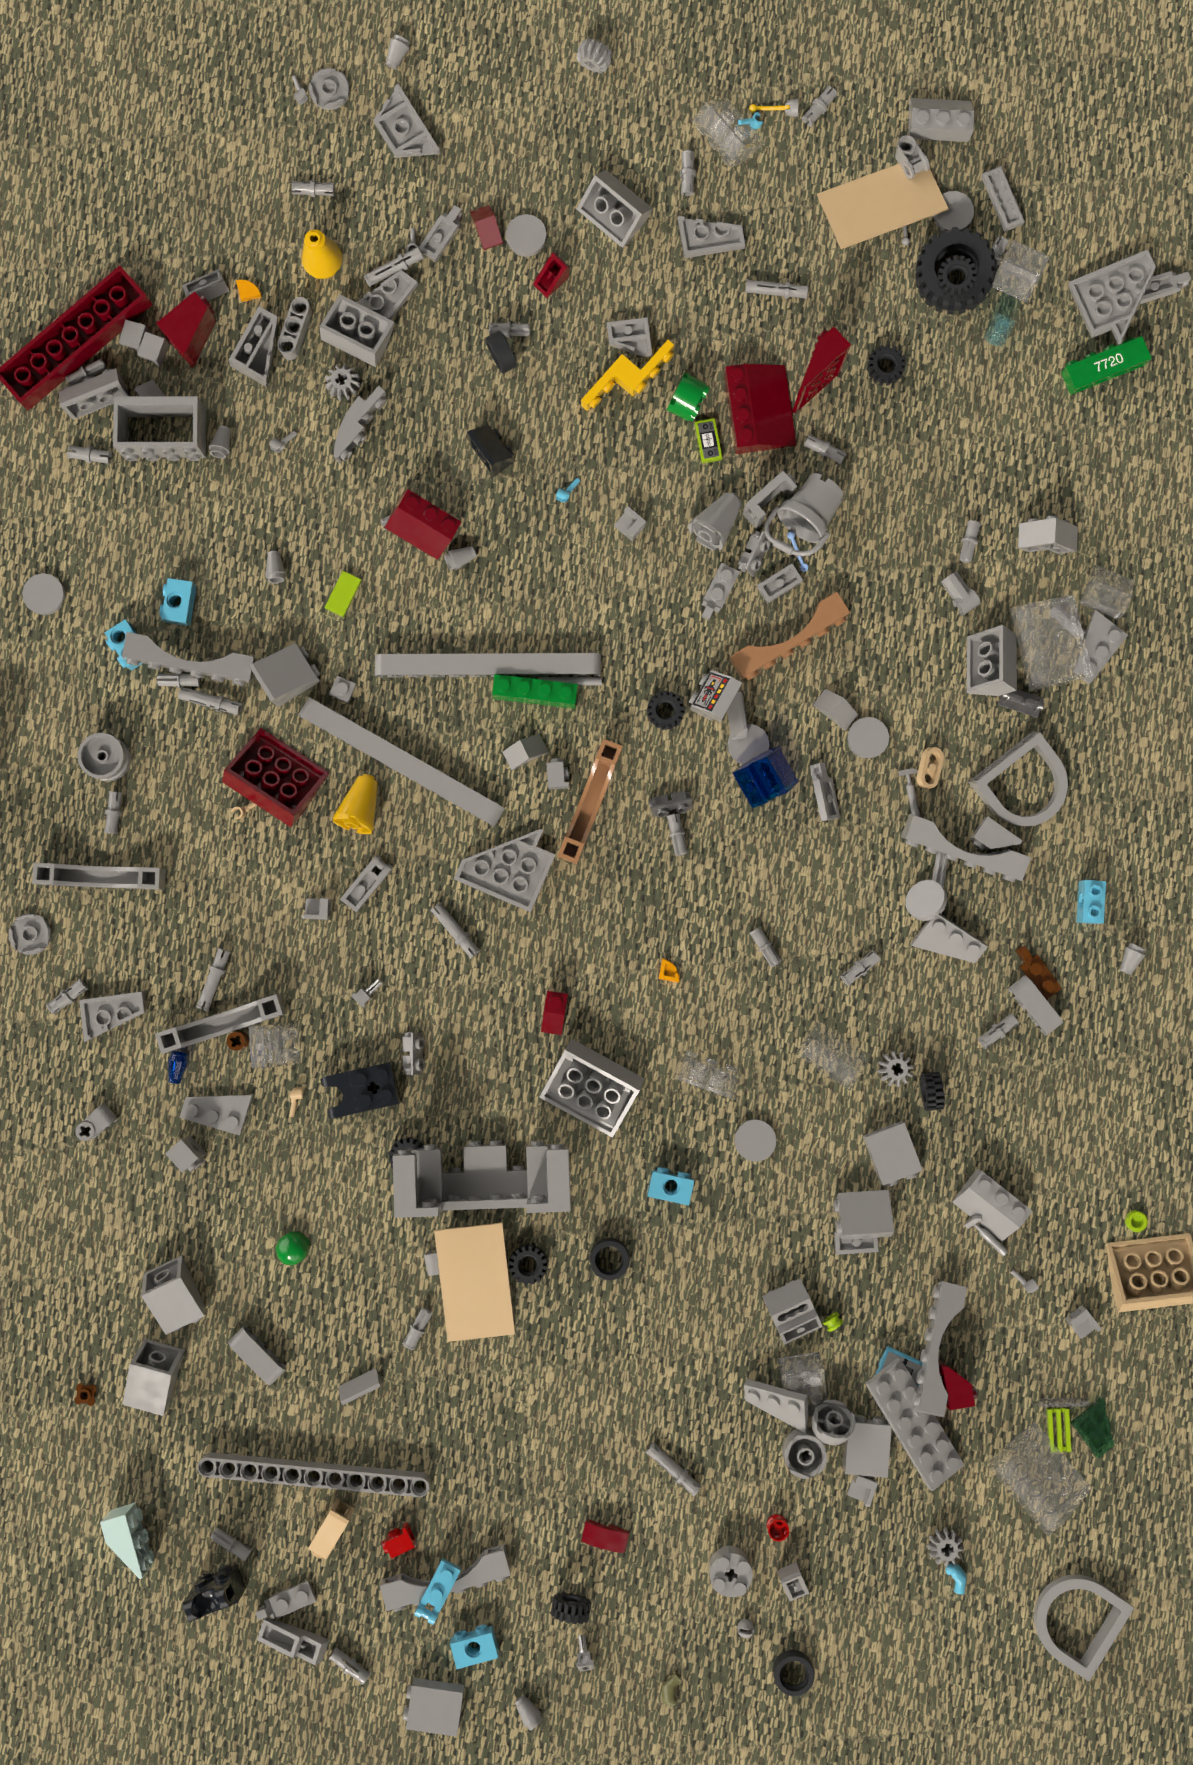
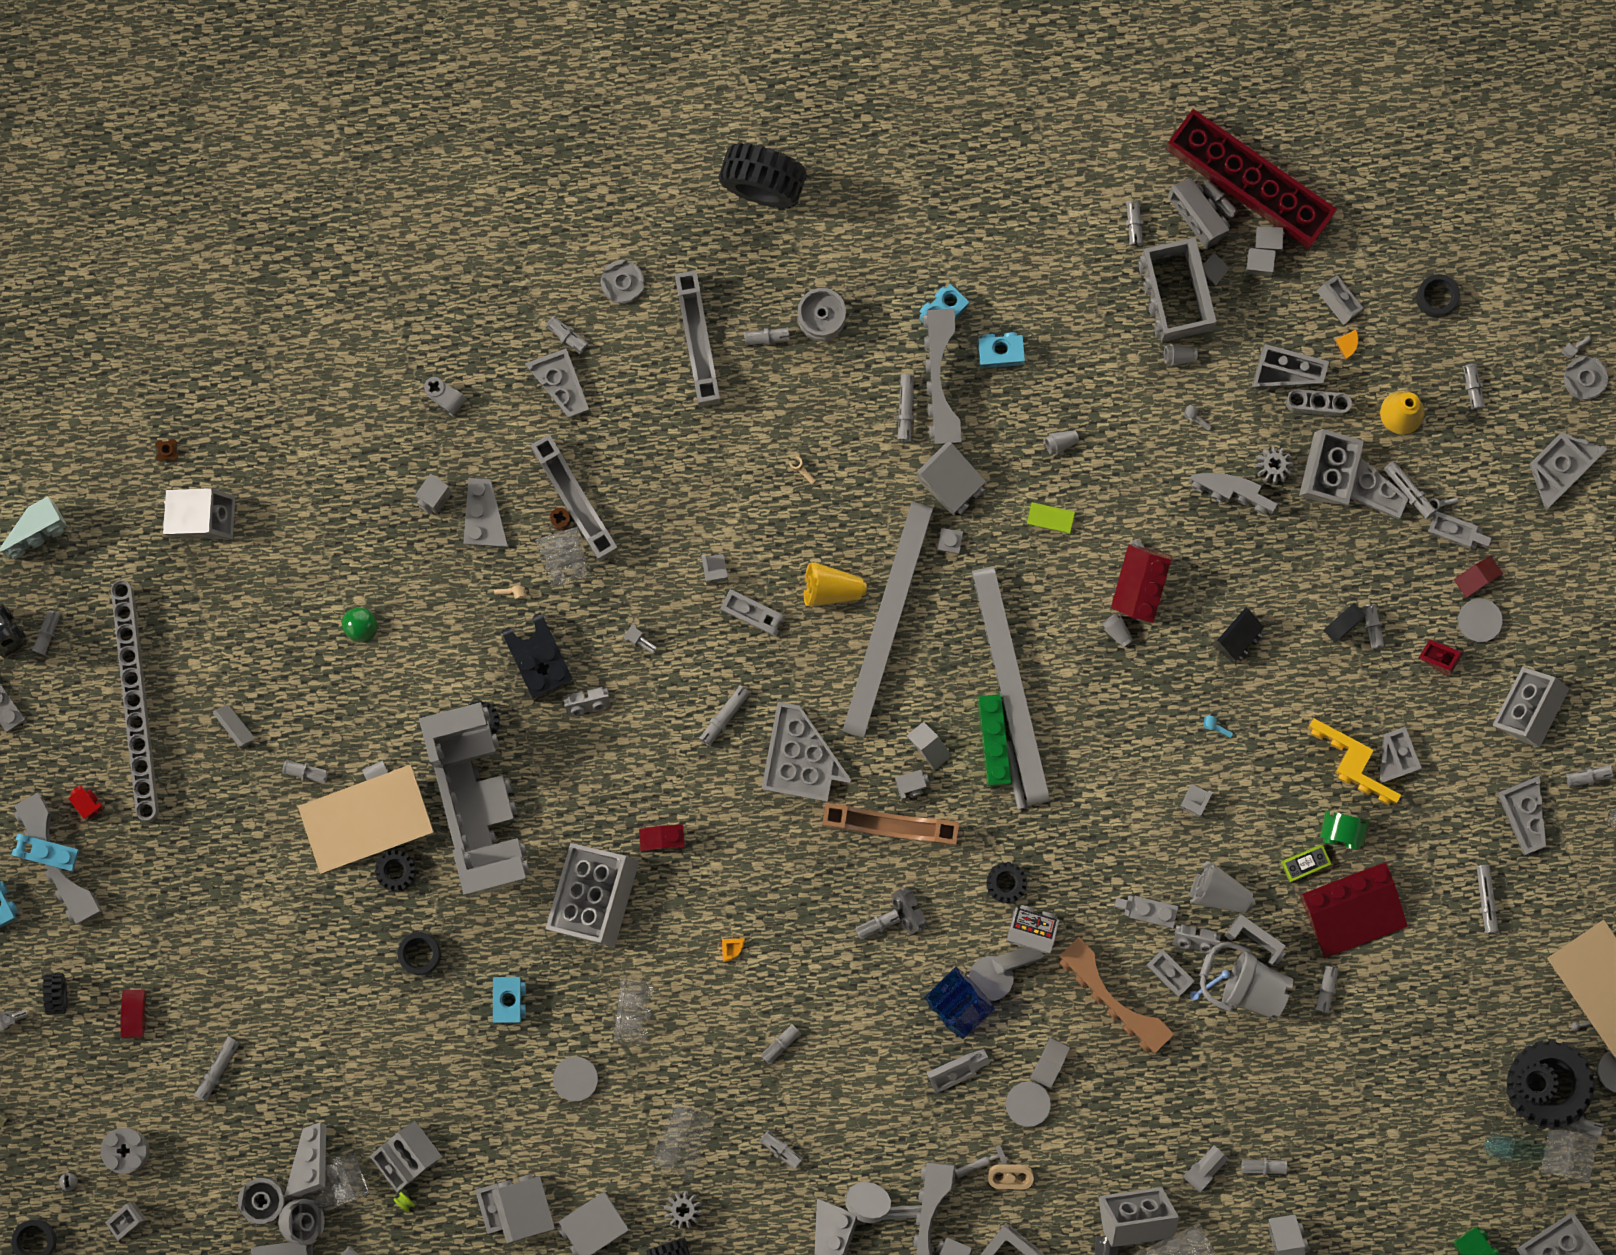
camera: 75 degrees right, 5 degrees down
(43, 594) = (977, 211): light grey tile -> none
(172, 1295) = (285, 514): light grey slope -> none
(176, 1066) = (520, 463): clear blue cone -> none
(177, 680) = (919, 369): light grey axle -> none
(189, 326) = (1290, 294): dark red slope -> none
(213, 979) = (618, 479): light grey pin -> none
(227, 214) = (1446, 281): none -> black tyre
(255, 1355) = (241, 614): light grey beam -> none
(274, 777) = (841, 493): dark red slope -> none
(331, 1529) = (83, 730): tan slope -> none
(779, 1532) = (179, 1191): red wheel -> none
(824, 365) = (1407, 962): dark red slope -> none
(892, 354) = (1447, 1034): black tyre -> none

